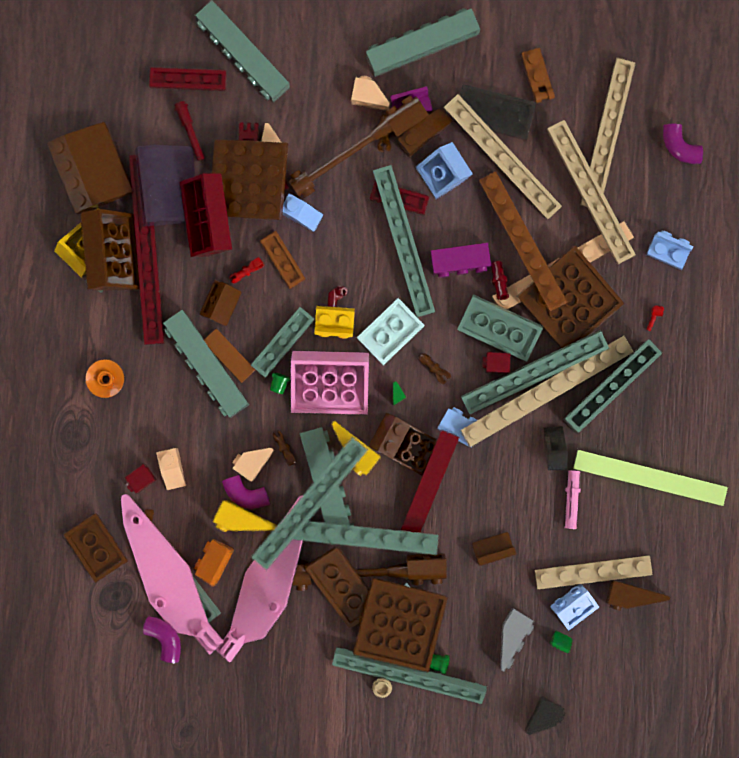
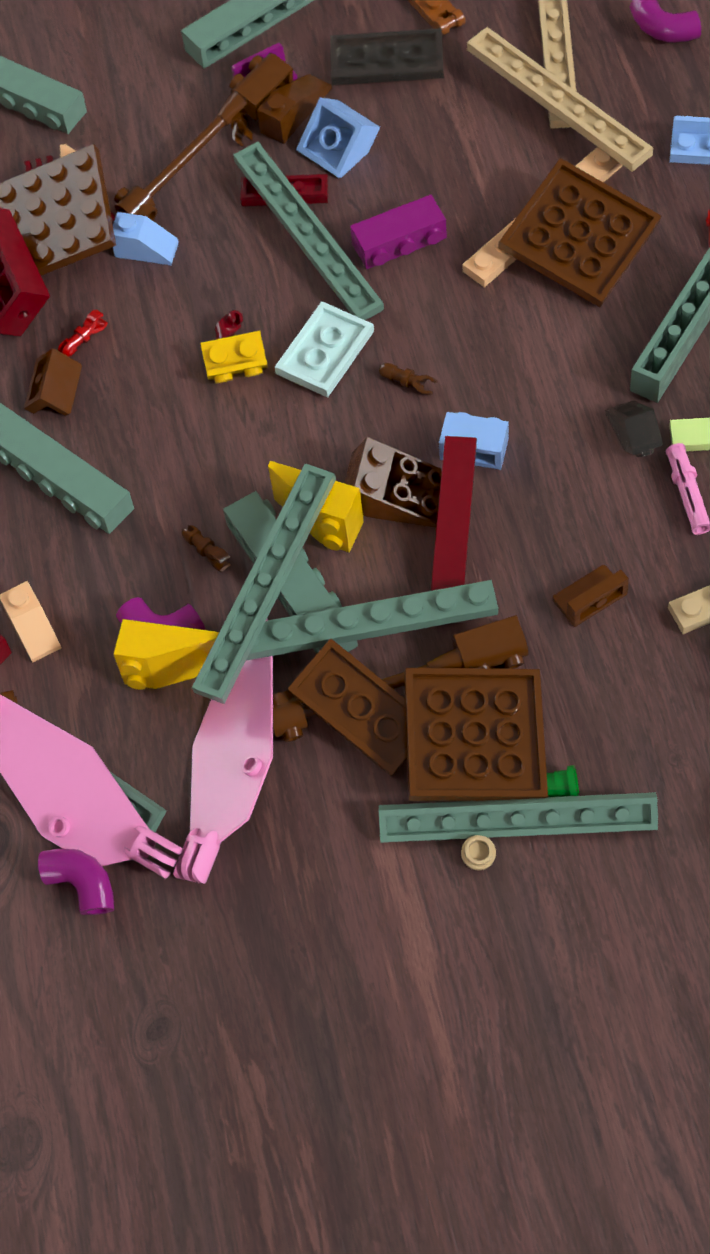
camera: 10 degrees left, 25 degrees down
(213, 562) = (135, 733): orange slope -> none
(229, 355) = (94, 451): dark orange tile -> none
(251, 462) = (160, 576): light nougat slope -> none
(279, 382) = (172, 459): green piece -> none
(282, 259) = (134, 308): dark orange tile -> none
(282, 342) = (162, 407): sand green plate -> none
(329, 382) = (244, 431): bright pink slope -> none
(368, 94) = (201, 82): light nougat slope -> none
(398, 394) = (362, 421): green slope -> none
(496, 362) = (500, 342): dark red brick -> none
(499, 280) = (466, 239): dark red pin -> none
(500, 328) = (488, 295): sand green plate -> none
(502, 156) = (417, 96): tan plate -> none
(513, 631) = (667, 702): light grey slope -> none
(523, 241) = (484, 179): dark orange plate -> none
(535, 372) = (561, 334): sand green plate -> none
(545, 392) = (584, 357): tan plate -> none

